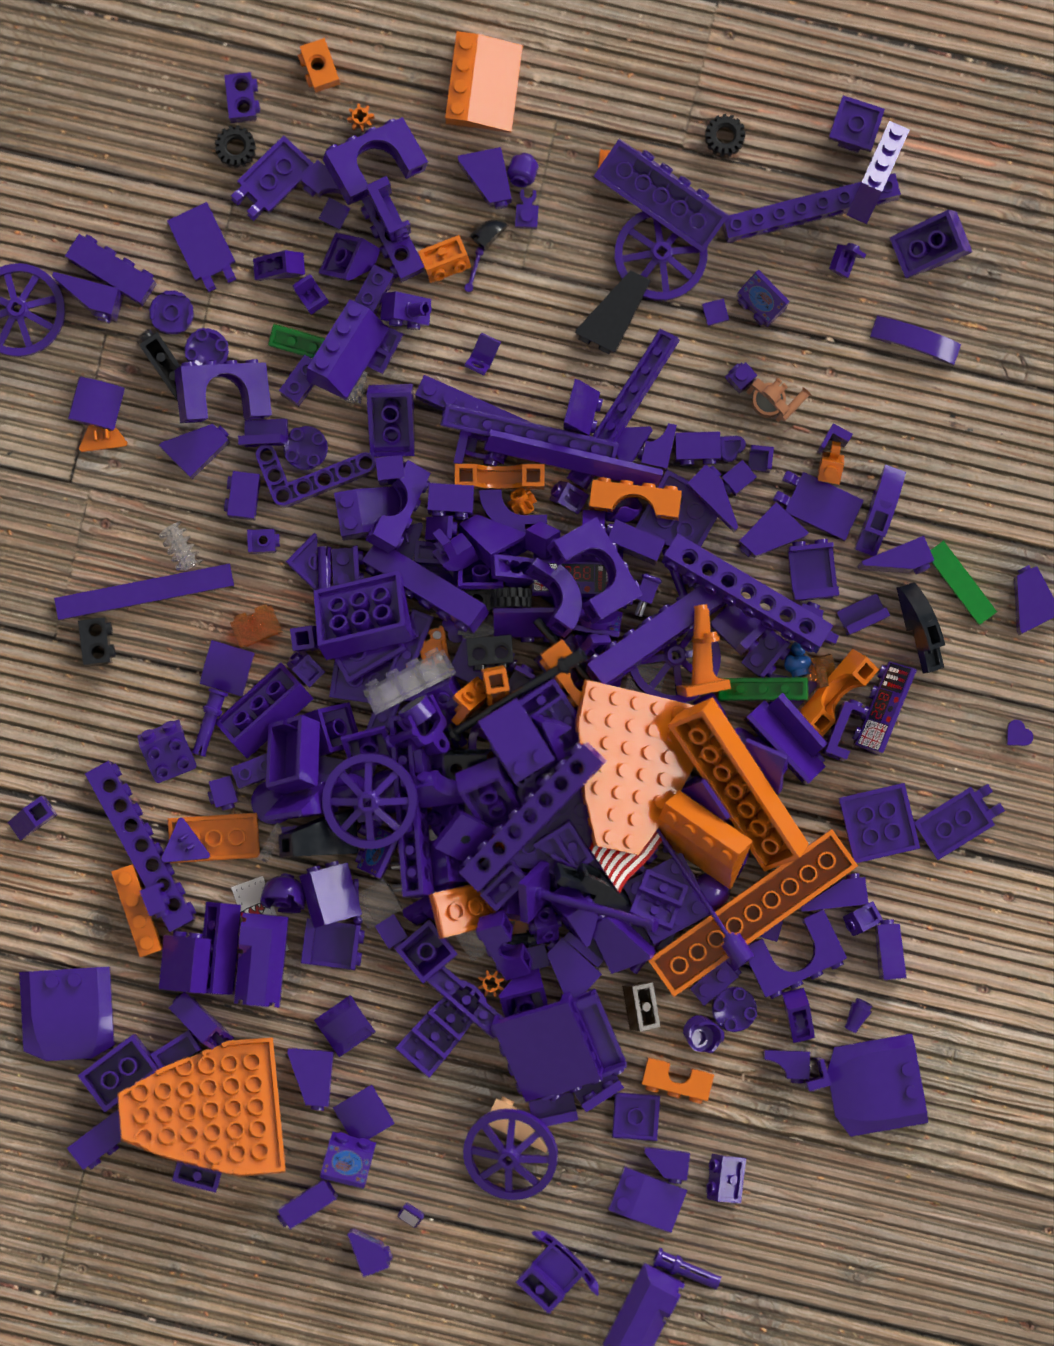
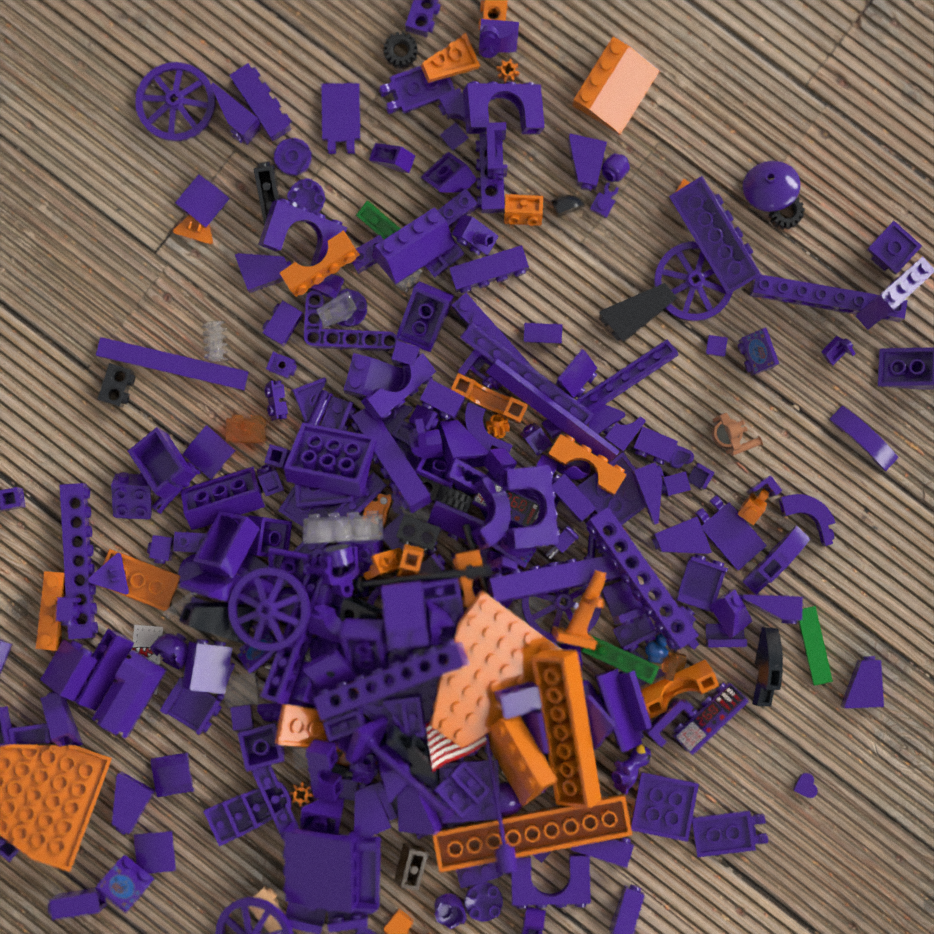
camera: 25 degrees right, 0 degrees up
(183, 701) = (161, 463): none -> dark purple piece
(243, 437) = (339, 253): none -> orange arch
(266, 572) = (274, 393): none -> dark purple hinge
(296, 133) = (451, 61): none -> orange wing
(296, 454) = (337, 310): none -> clear slope
(310, 294) = (406, 190): dark purple bracket -> none
(334, 87) = (497, 37): none -> dark purple slope
(436, 339) = (488, 269): none -> dark purple brick
(469, 287) = (532, 240): dark purple hinge -> none
(483, 354) = (519, 297): dark purple bracket -> none
(525, 381) = (543, 333): none -> dark purple tile
(675, 776) = (519, 699): none -> panel
(704, 123) = (775, 193): none -> dark purple dish
(741, 376) = (713, 405): dark purple brick -> none
(823, 803) = (627, 771): none -> dark purple animal
(858, 587) = (731, 612): none -> dark purple slope
(862, 919) = (617, 877): dark purple bracket -> none
(894, 438) = (814, 509): none -> dark purple arch

